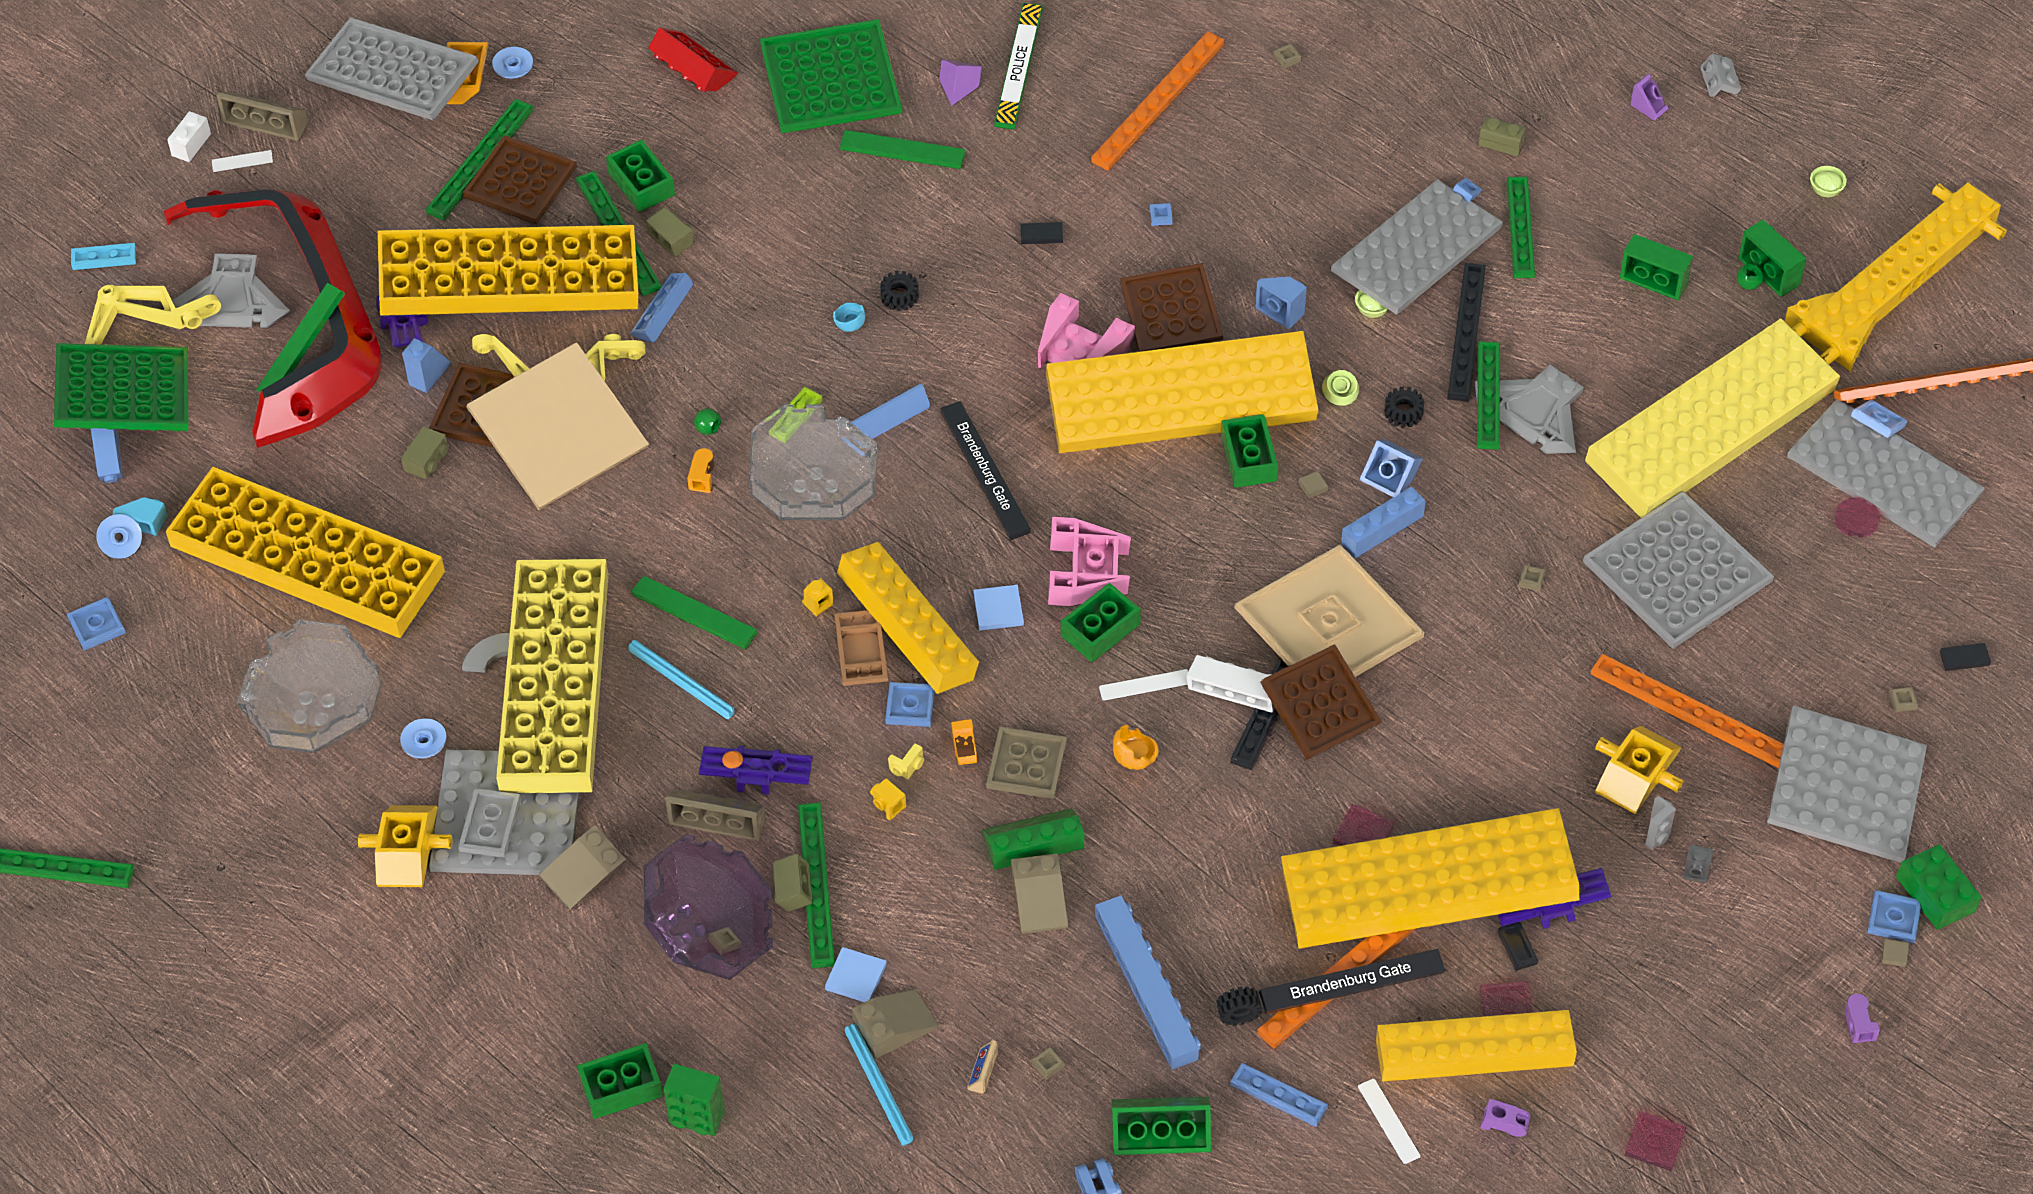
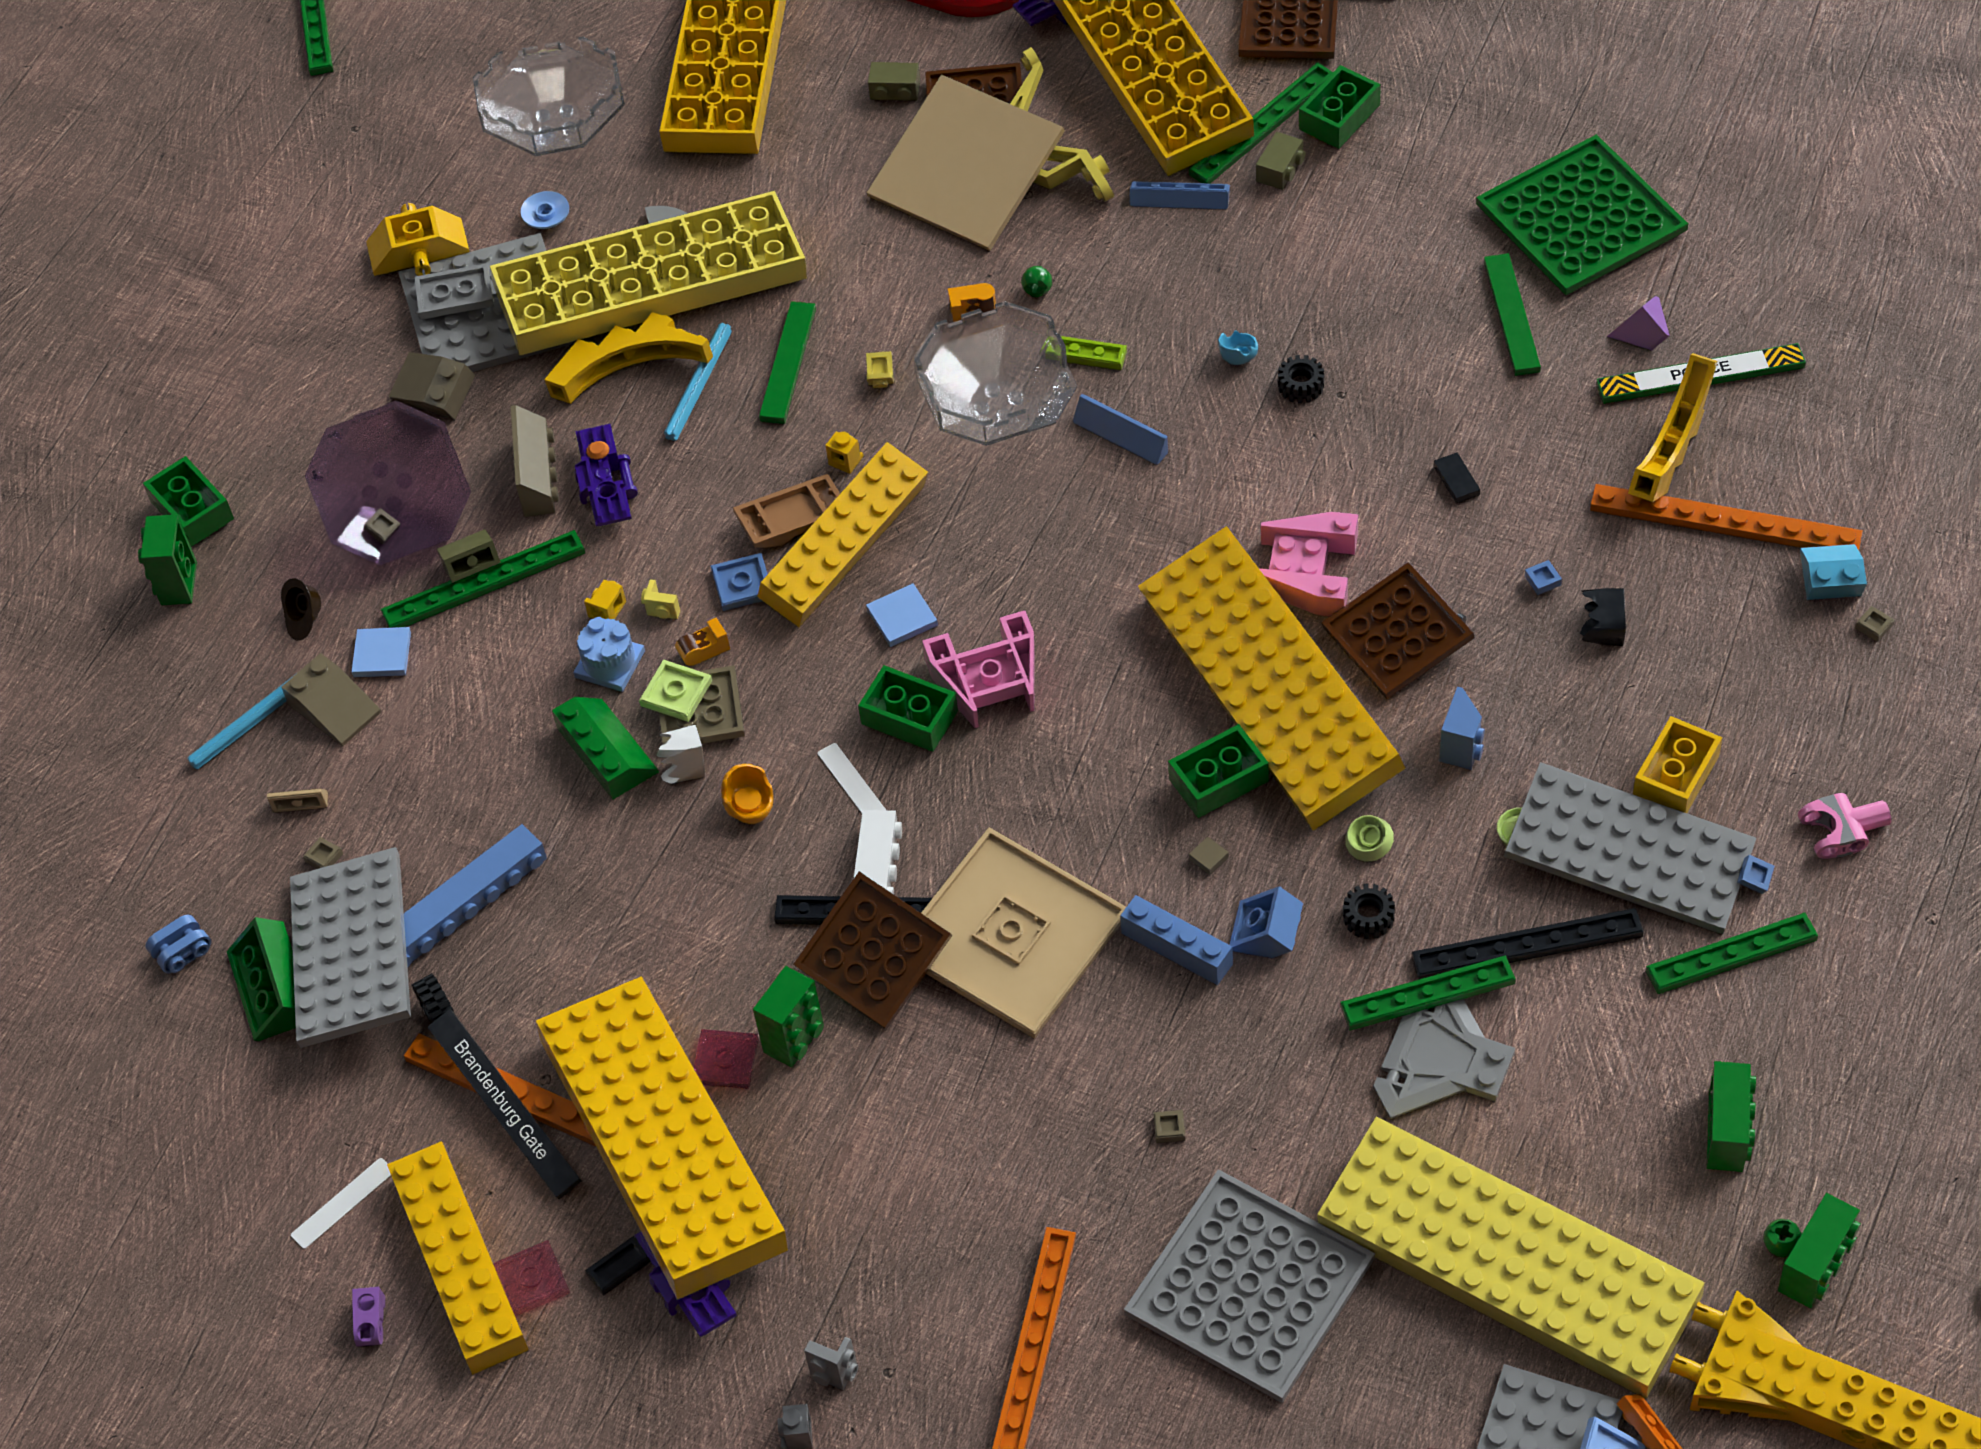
camera: 75 degrees right, 0 degrees up
(423, 365) = (998, 33): medium blue slope -> none
(620, 717) = (621, 348): none -> yellow arch
(691, 60) = (1534, 91): red slope -> none
(742, 550) = (879, 369): none -> light yellow bracket
(787, 1021) = (300, 607): none -> dark brown piece
(946, 809) = (607, 654): none -> light blue piece
(985, 470) = (1086, 541): black tile -> none
(1008, 770) = (675, 690): none -> yellowish green tile
(1039, 893) = (530, 774): dark tan slope -> none
(1067, 84) = (1656, 471): none -> yellow arch
(1078, 789) = (684, 754): none -> white piece
(1164, 1050) = (349, 947): none -> light grey plate
(1215, 190) = (1606, 616): none -> black piece
(1237, 56) = (1833, 571): none -> medium azure slope
(1279, 1094) = (344, 1083): medium blue tile -> none
(1363, 766) = (788, 1016): none -> green brick
(1365, 196) = (1677, 765): none -> yellow brick
(1447, 129) = (1844, 823): none -> bright pink connector
(1502, 136) = (1865, 884): olive brick -> none
(1637, 768) = (920, 1320): yellow slope -> none

